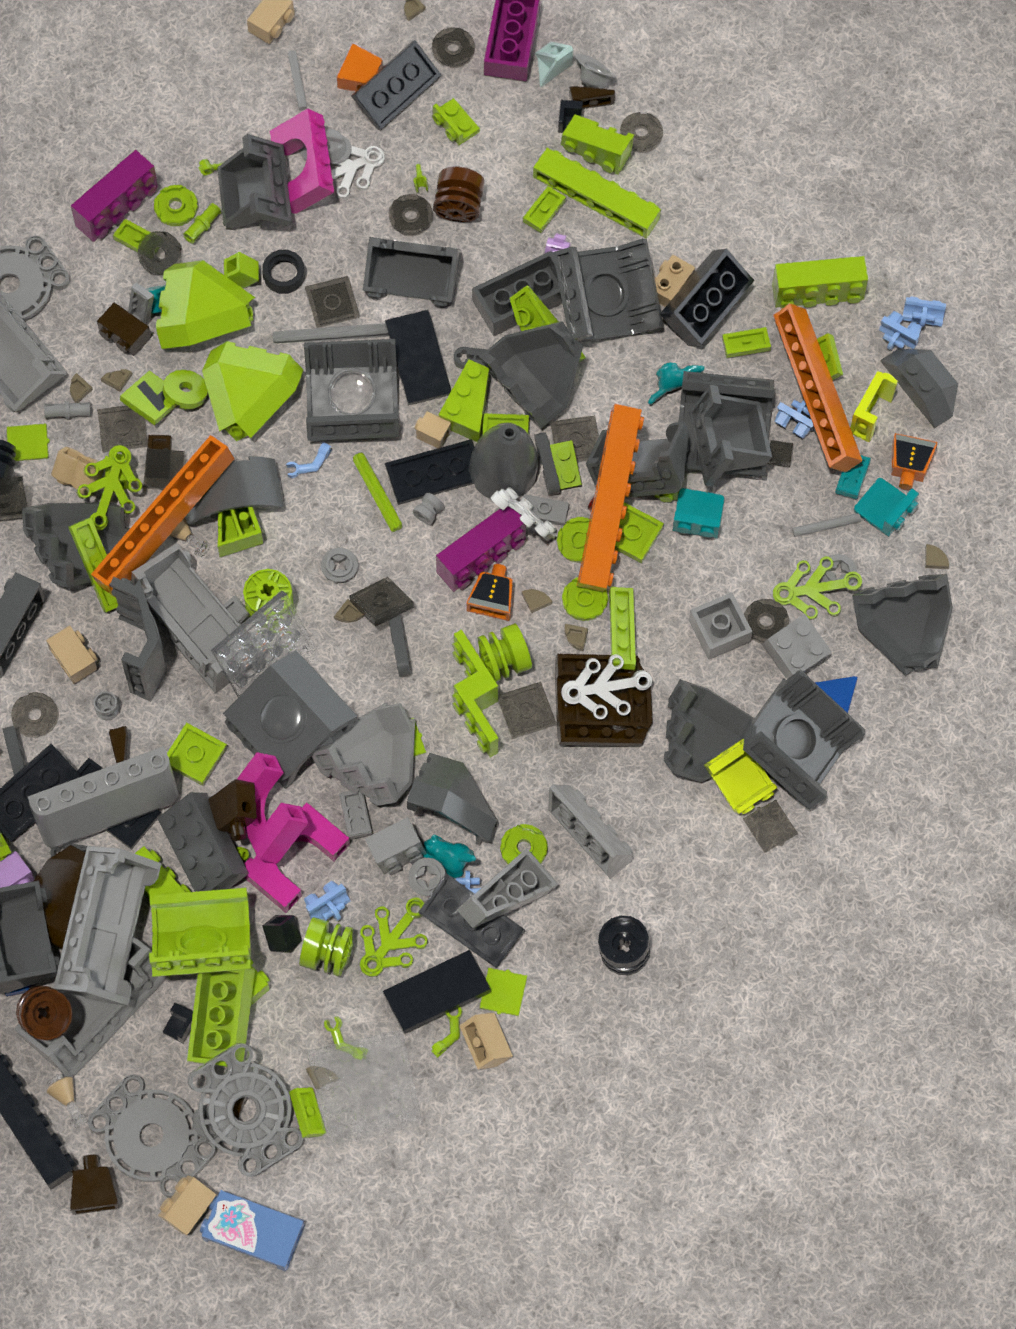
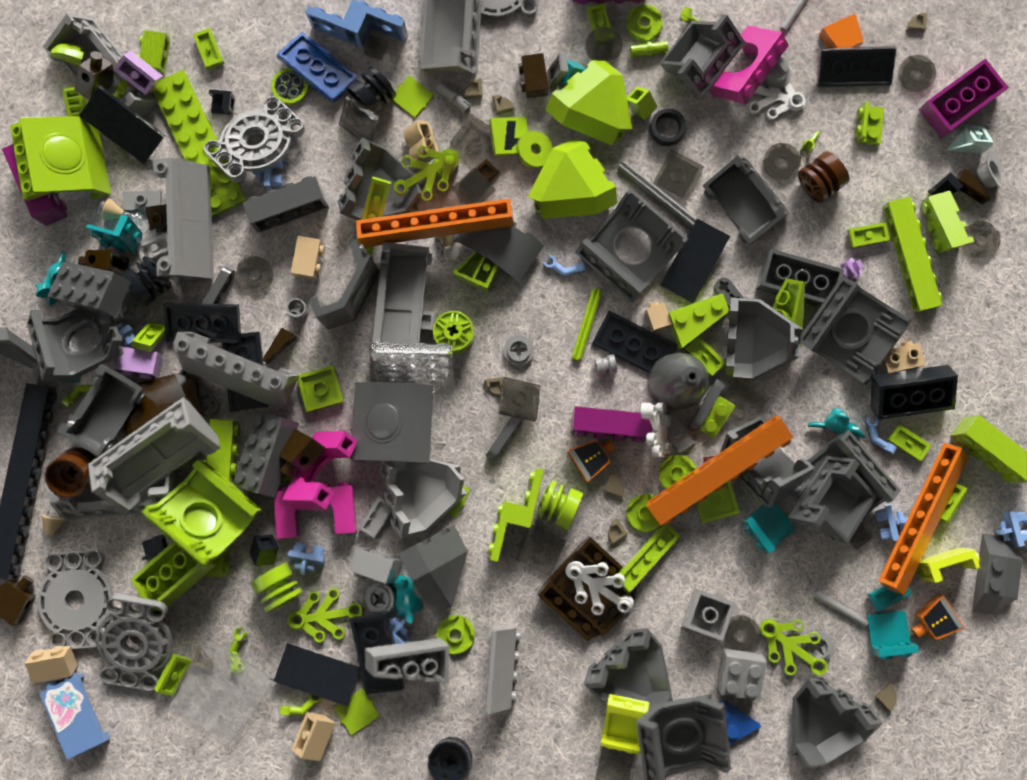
camera: 45 degrees right, 15 degrees up
(732, 362) = (887, 447): none -> light blue arm

